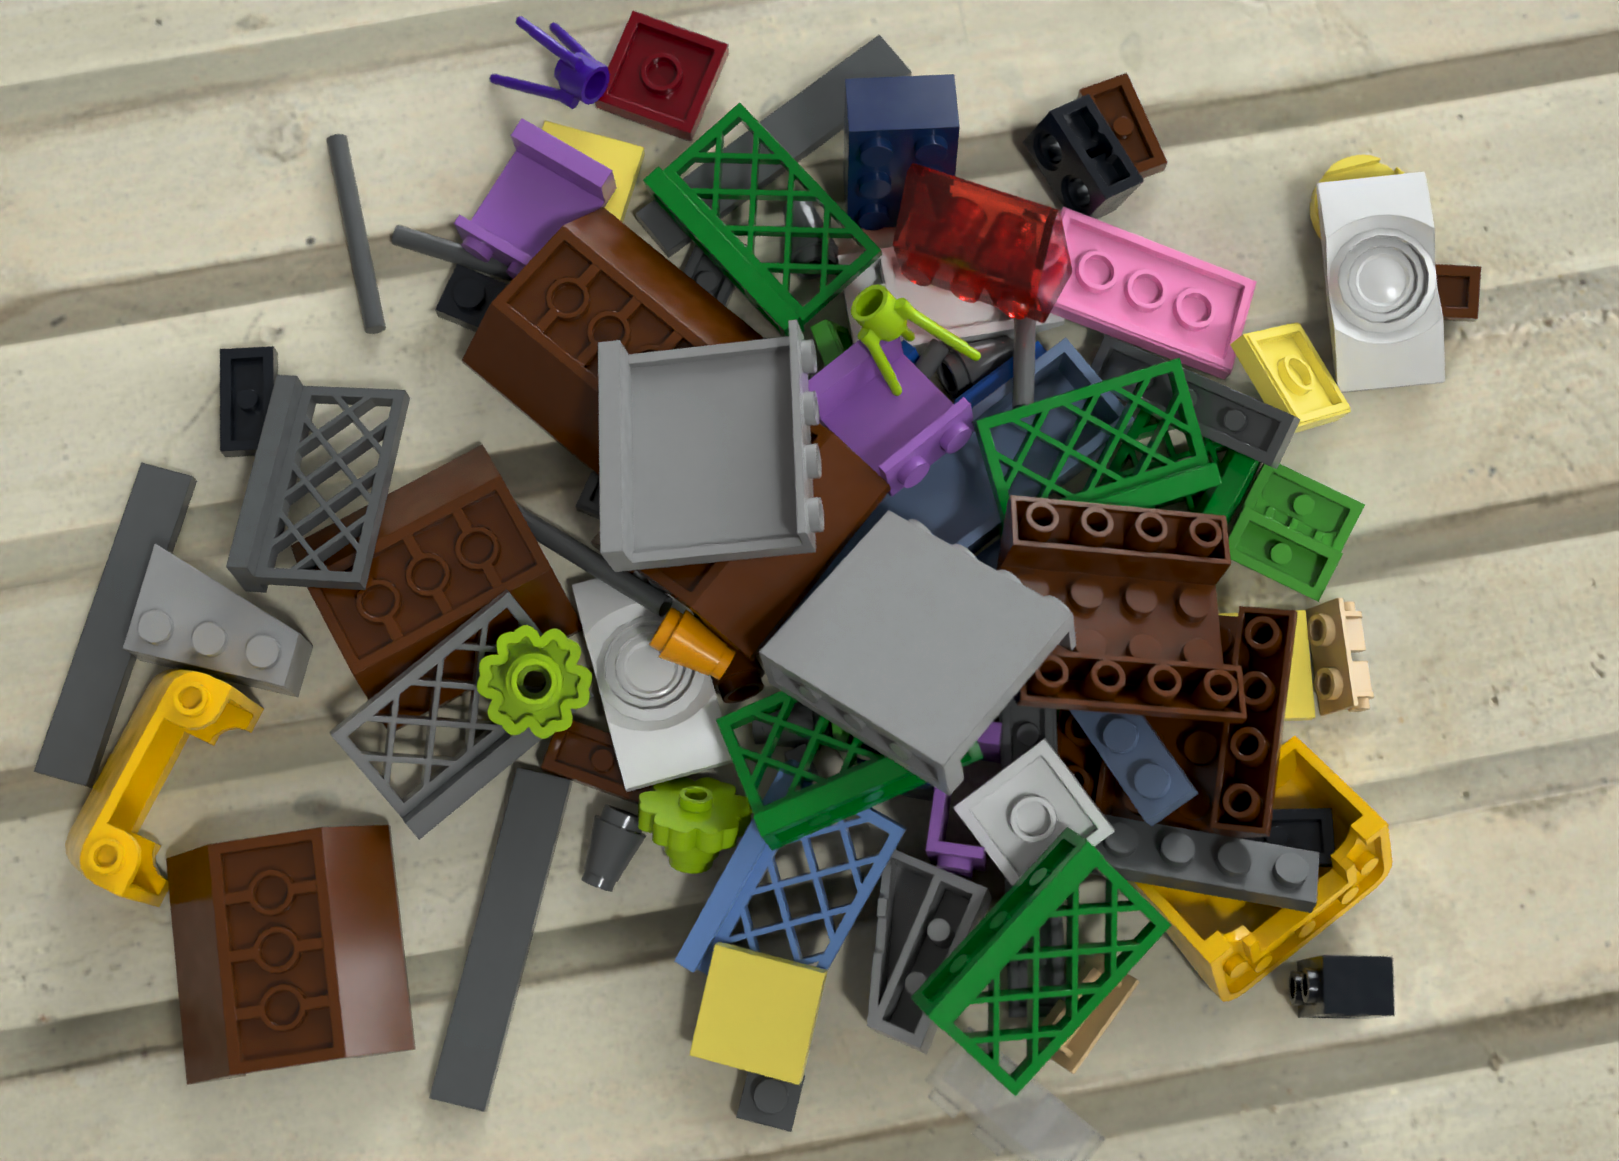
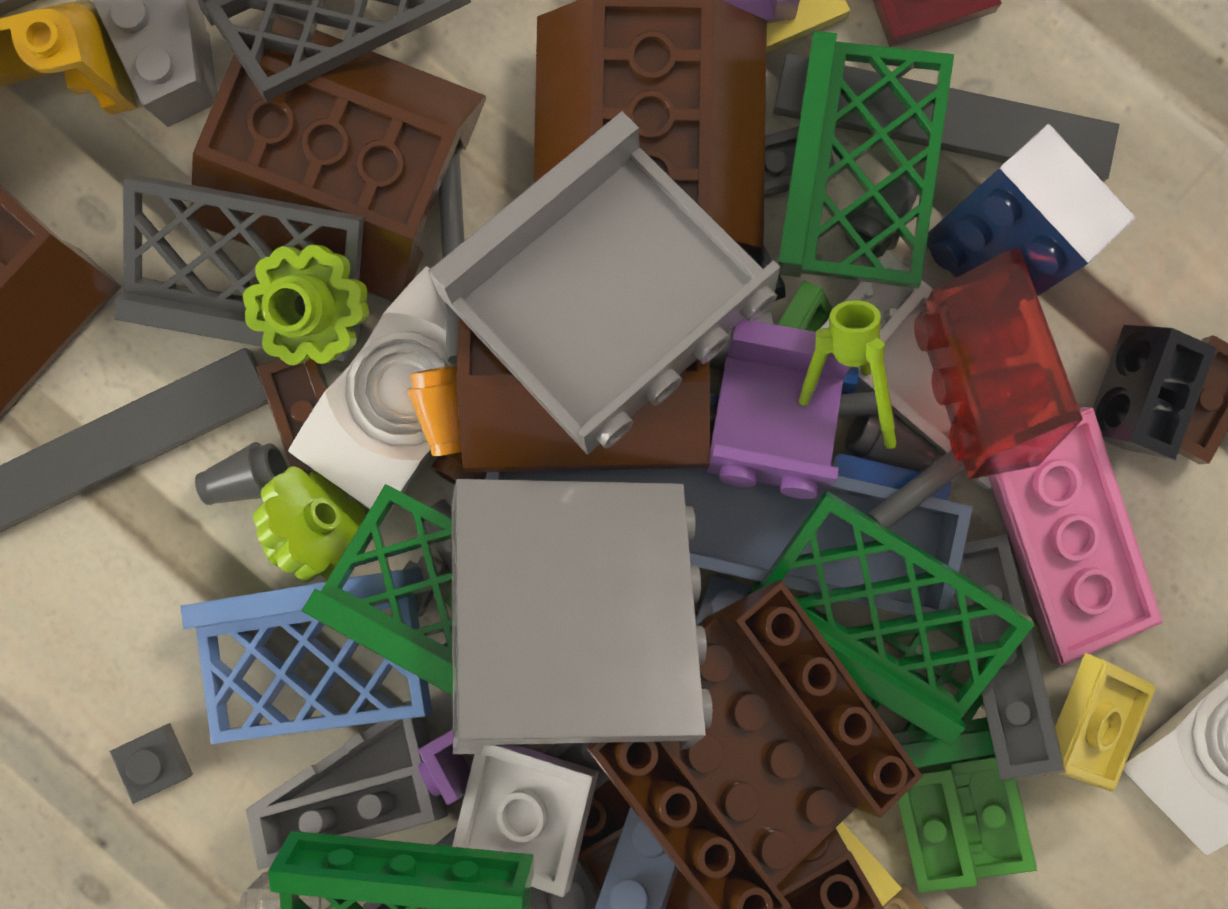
camera: 55 degrees right, 10 degrees up
(758, 1012) = (195, 706): light yellow tile -> none

